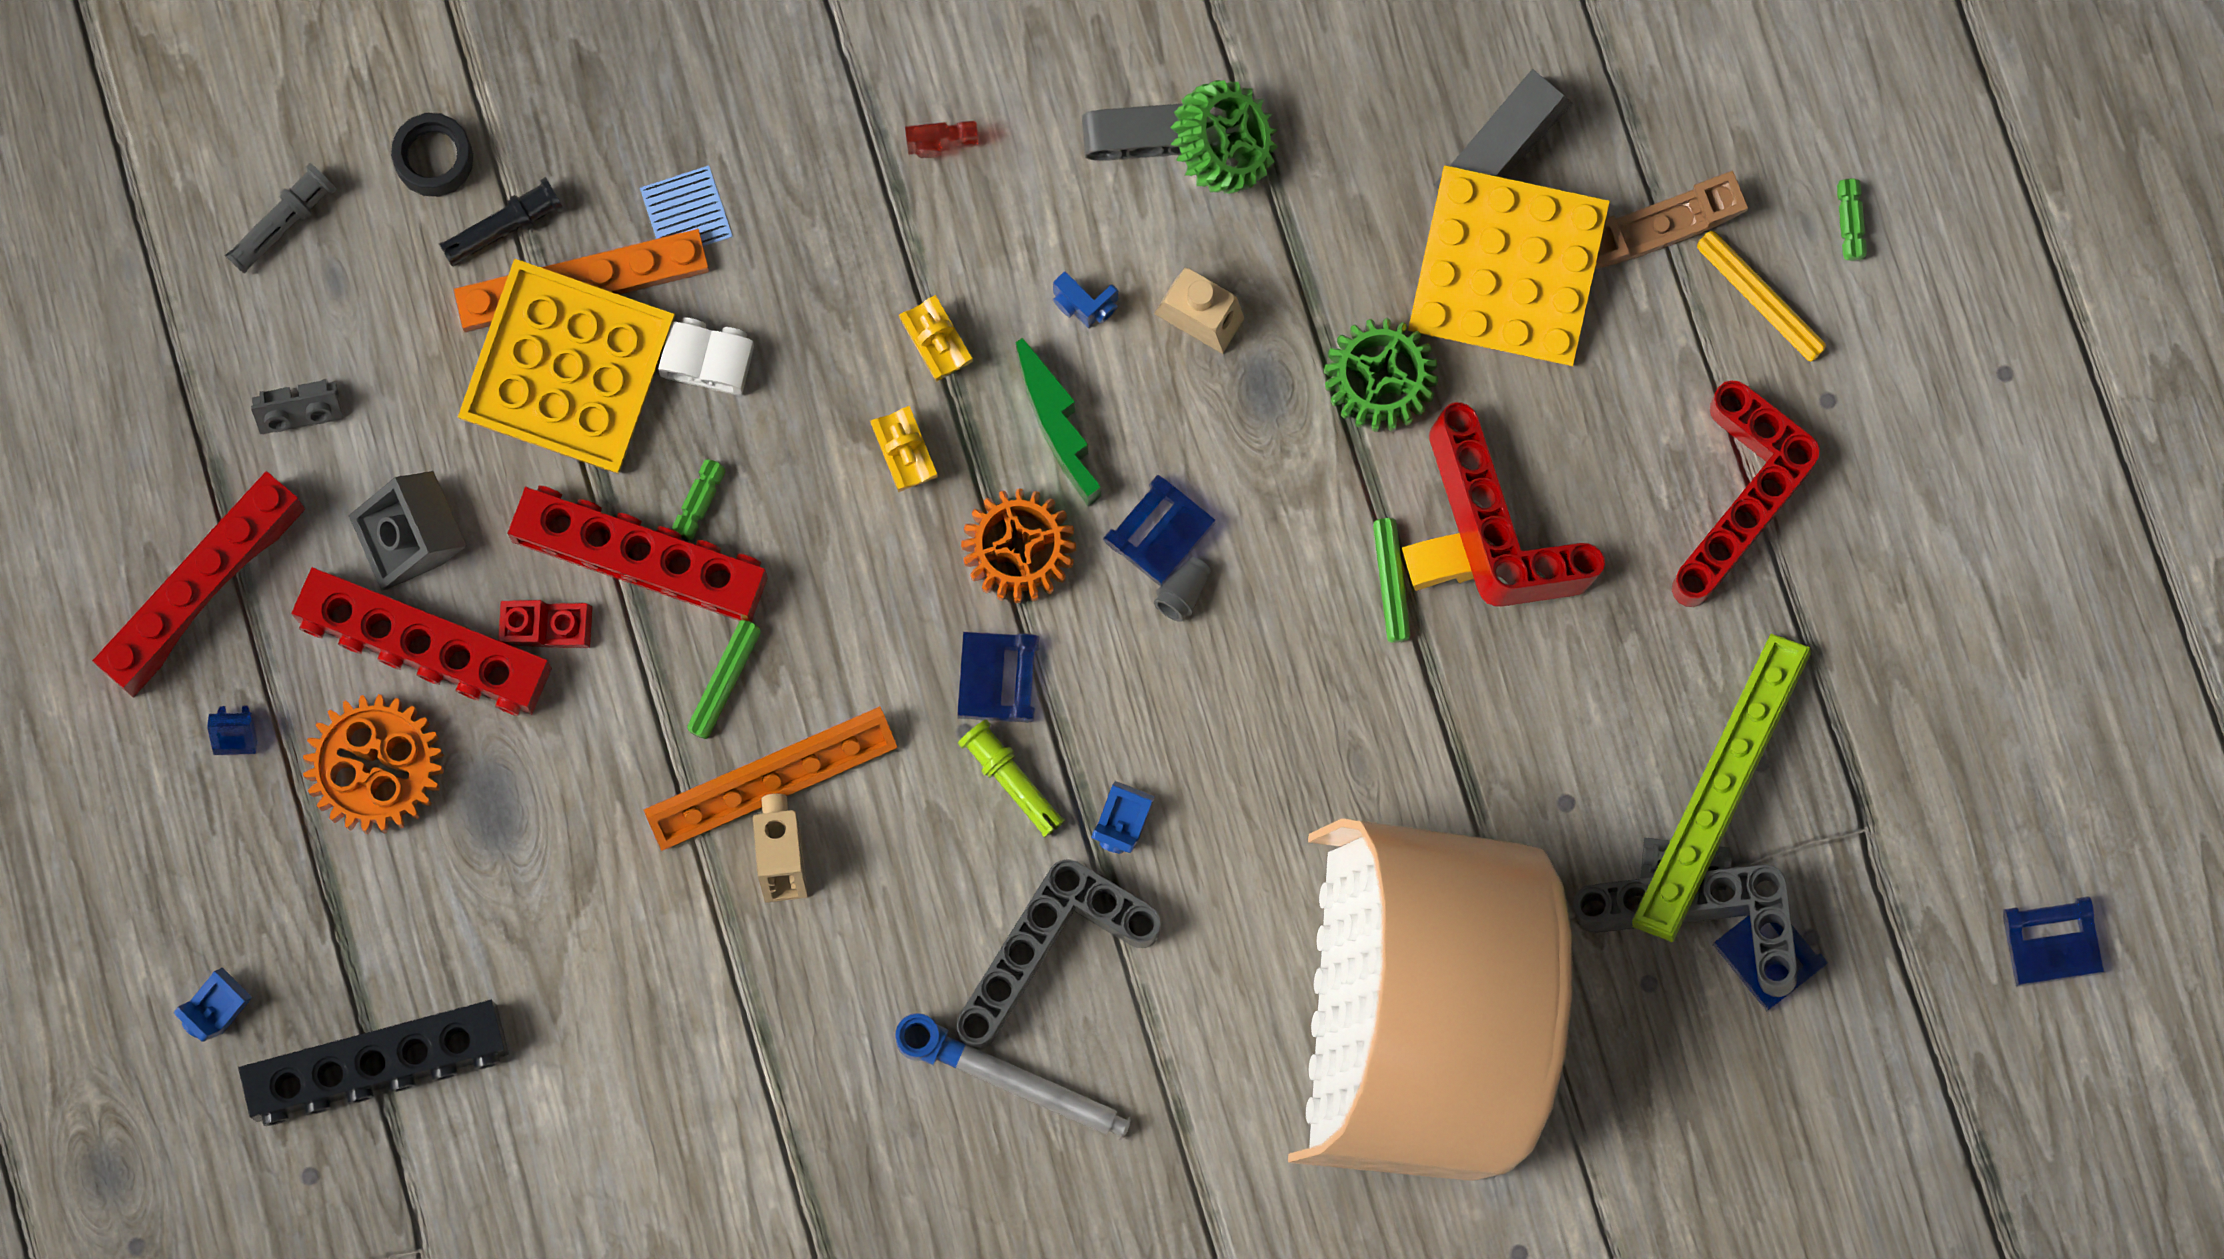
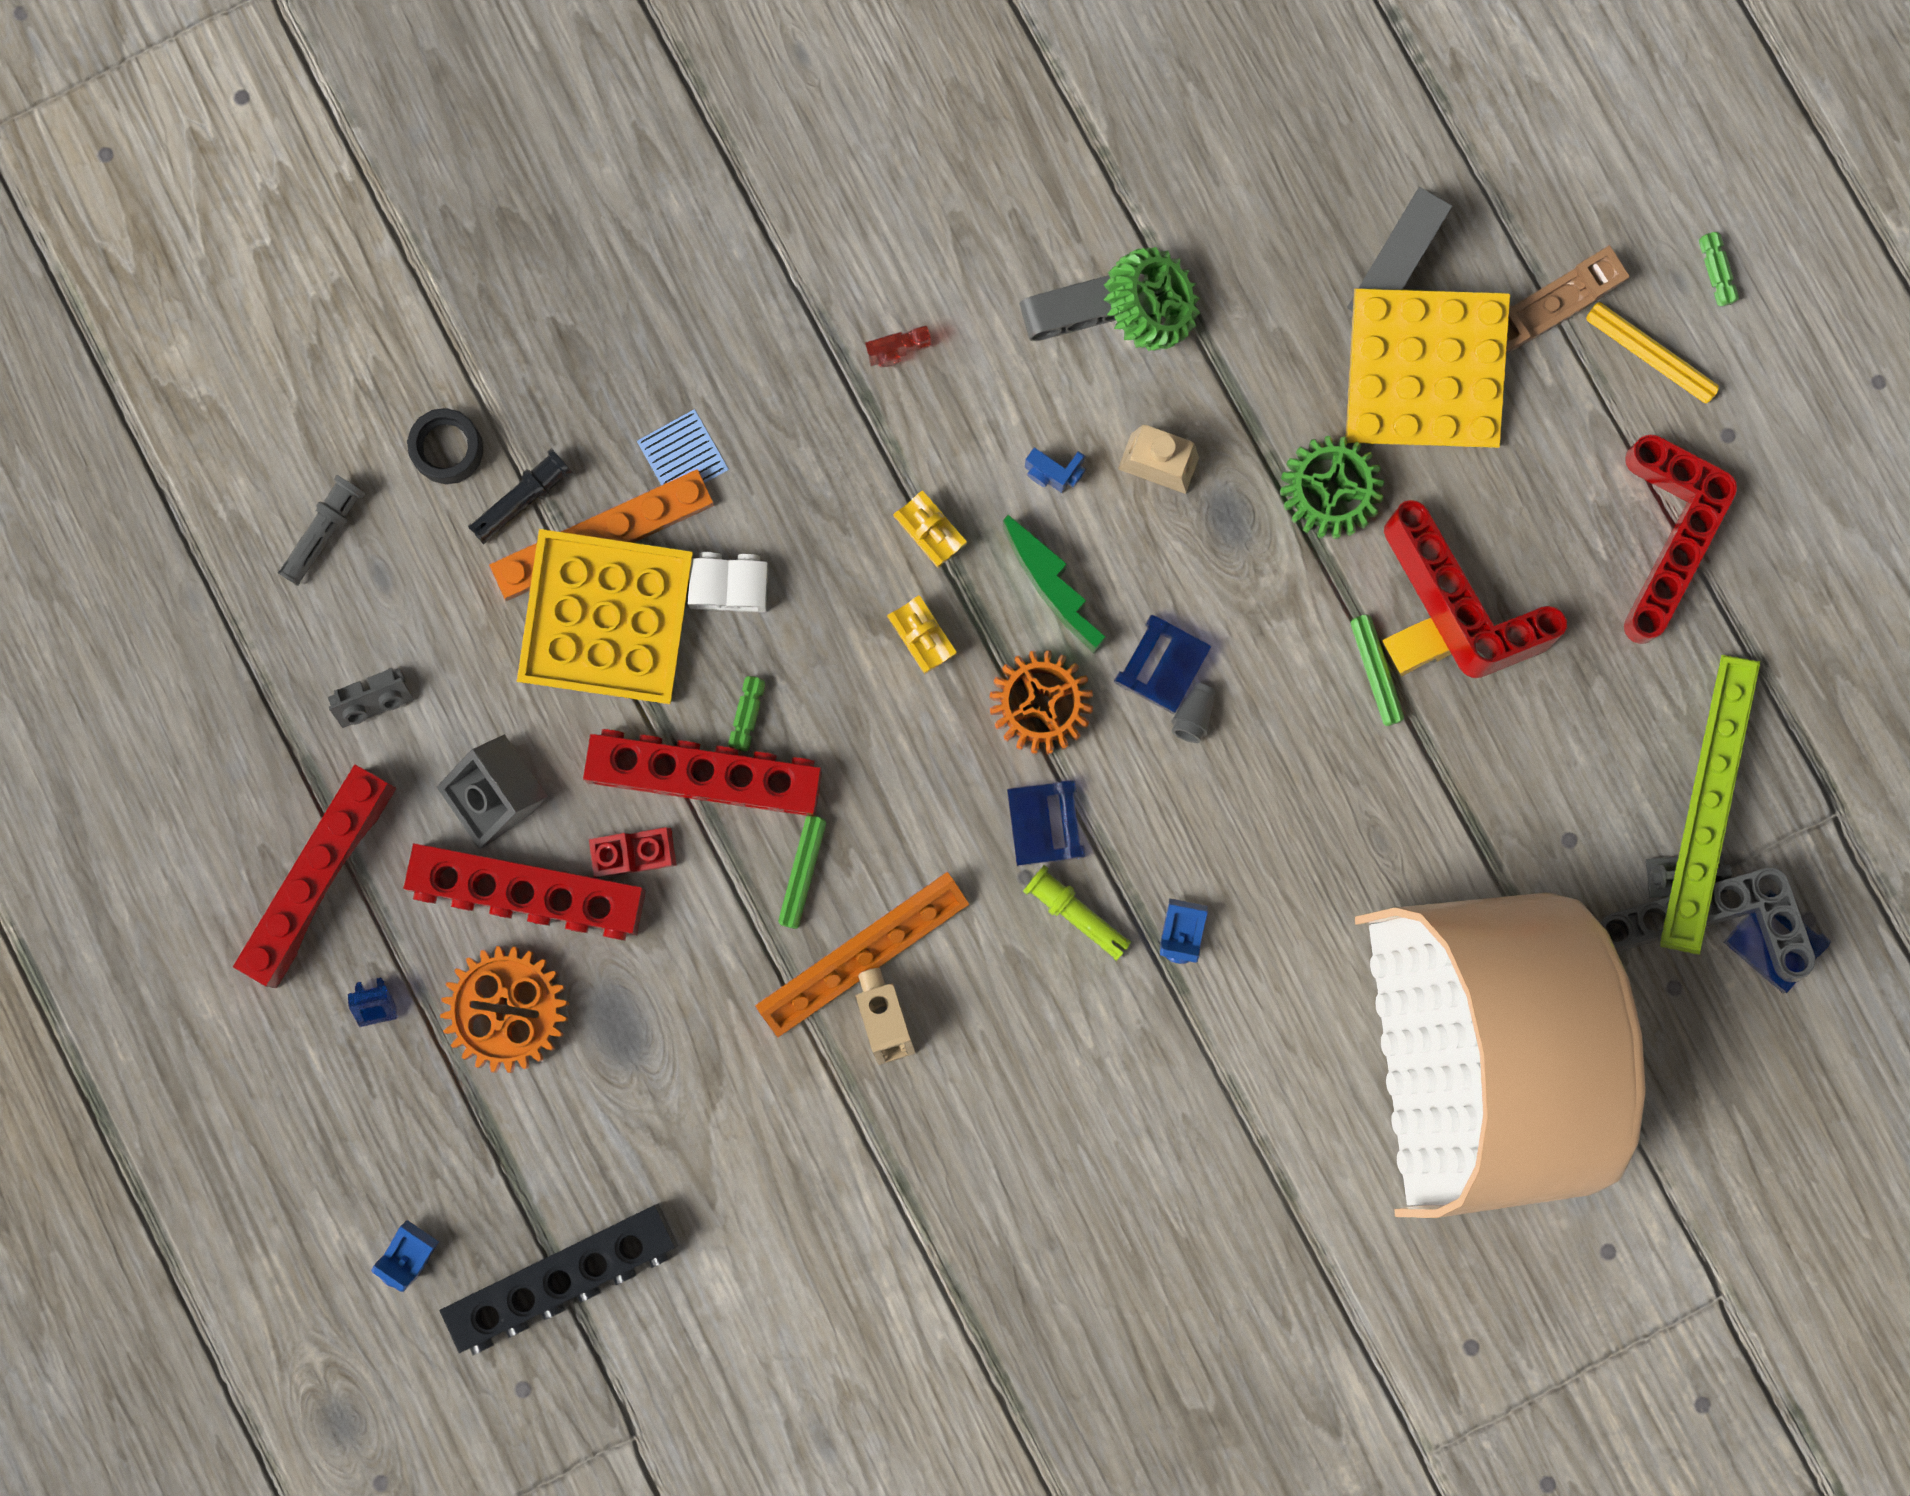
camera: 10 degrees left, 5 degrees up
(1007, 1077) = (1128, 1183): flat silver piece -> none
(1042, 940) = (1133, 1054): dark grey beam -> none

